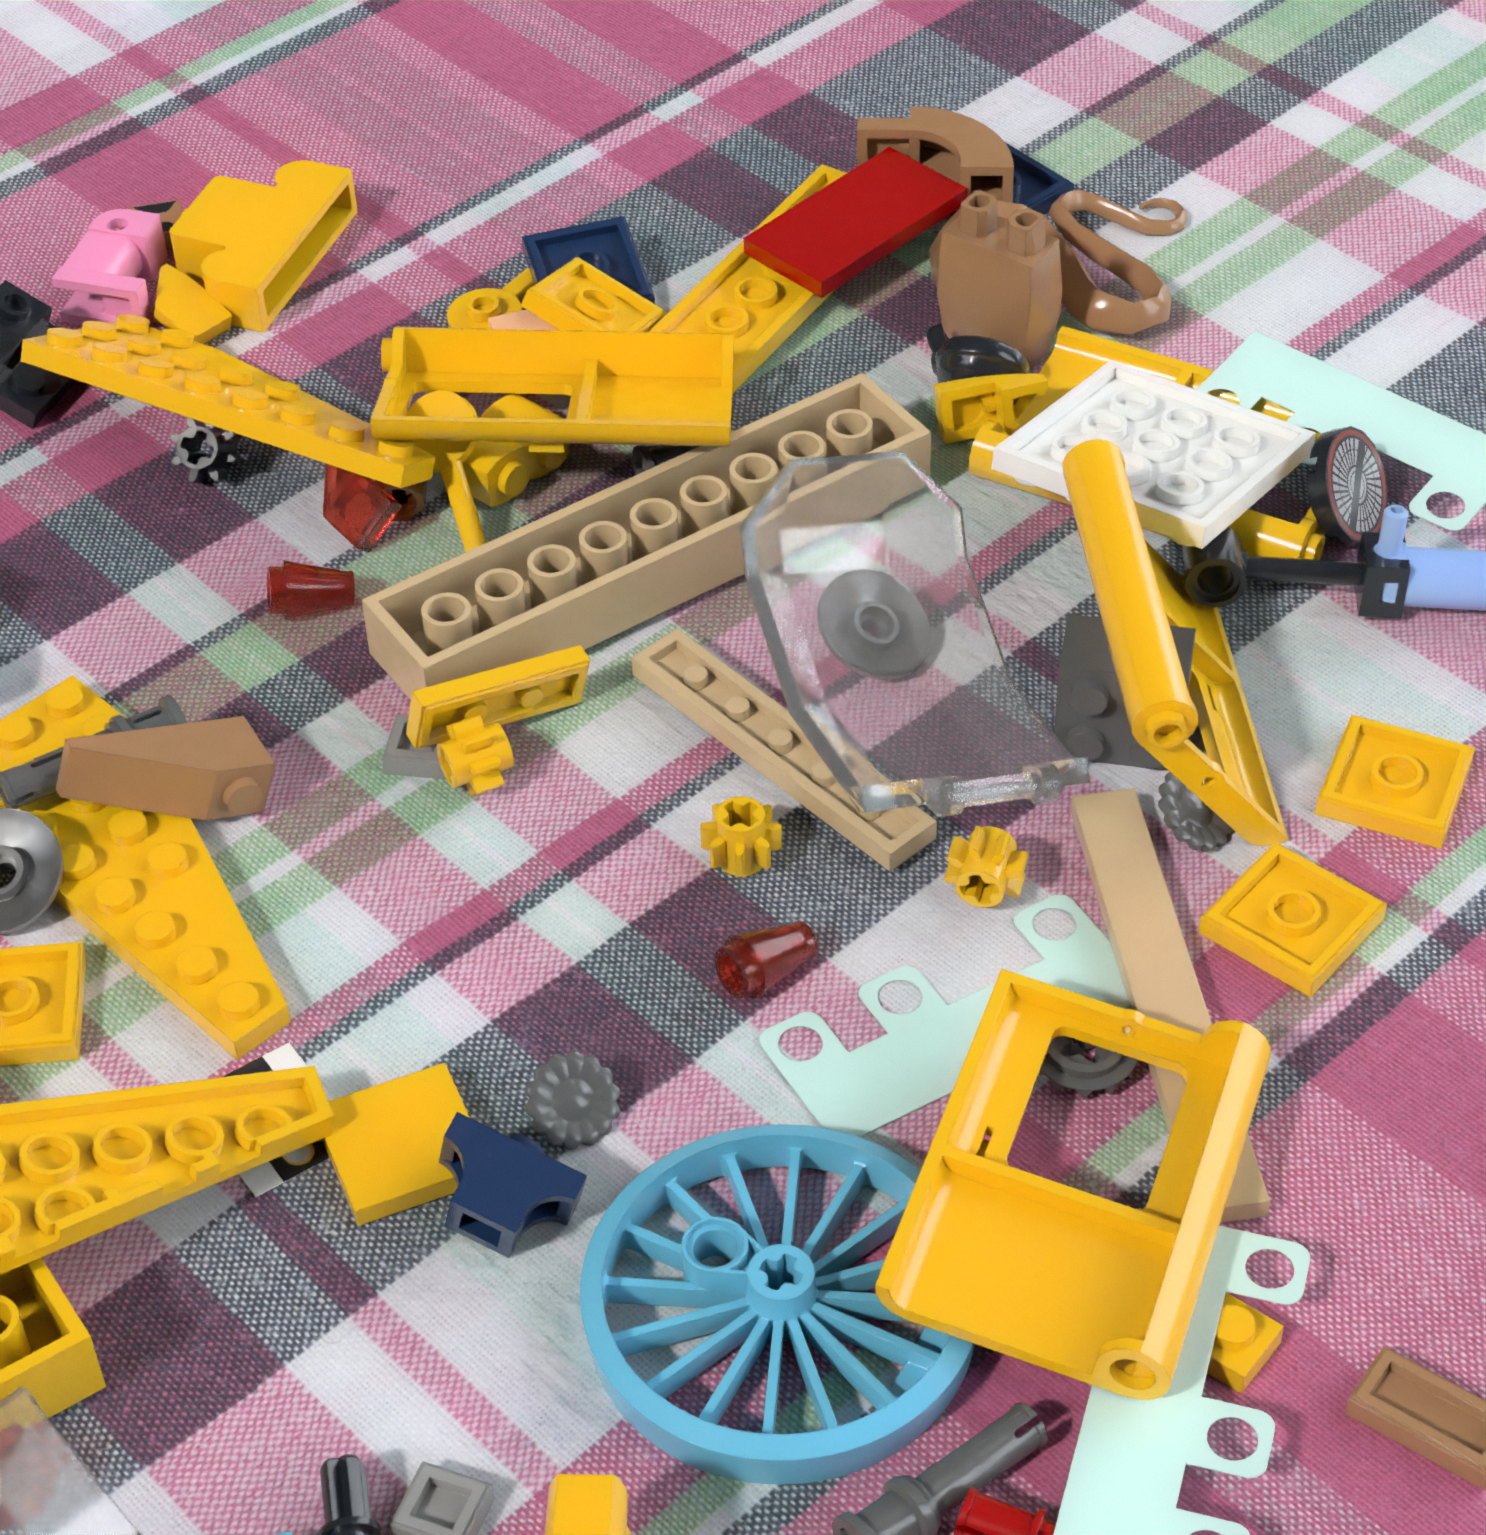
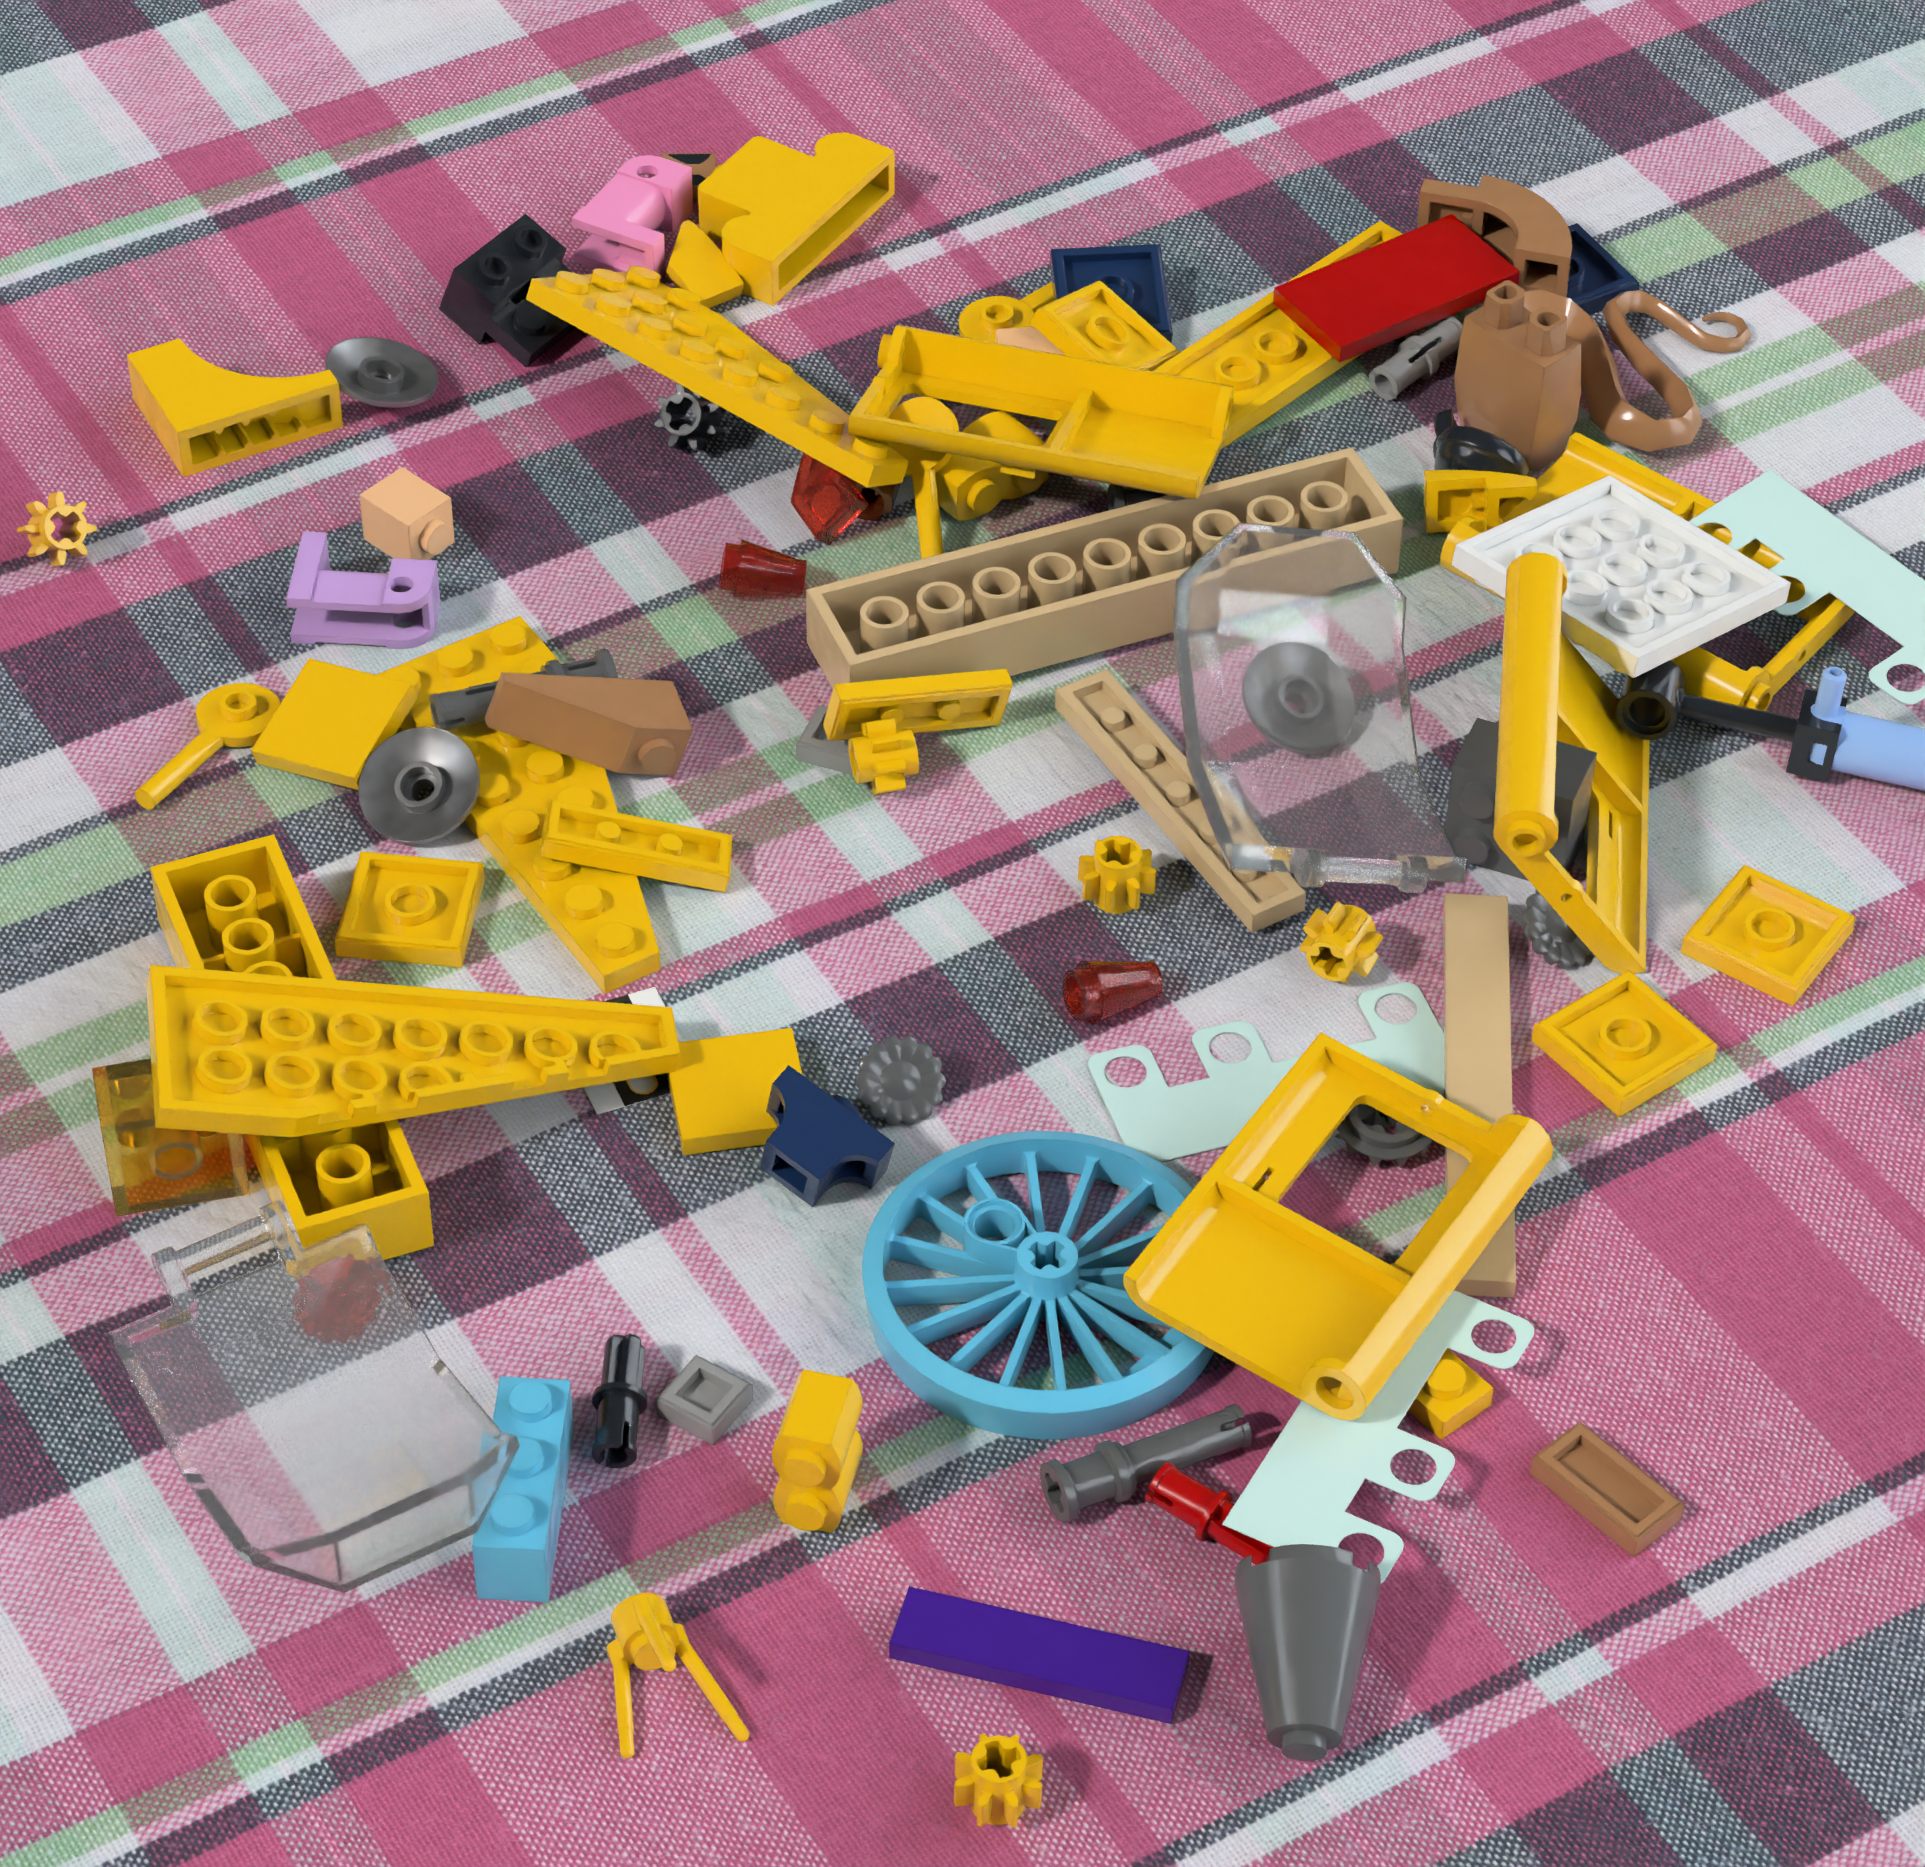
camera: 10 degrees right, 0 degrees up
(240, 895) = (636, 845): none -> yellow tile
(877, 299) = (1400, 372): none -> light grey pin
(1348, 485) = (1808, 635): tile -> none

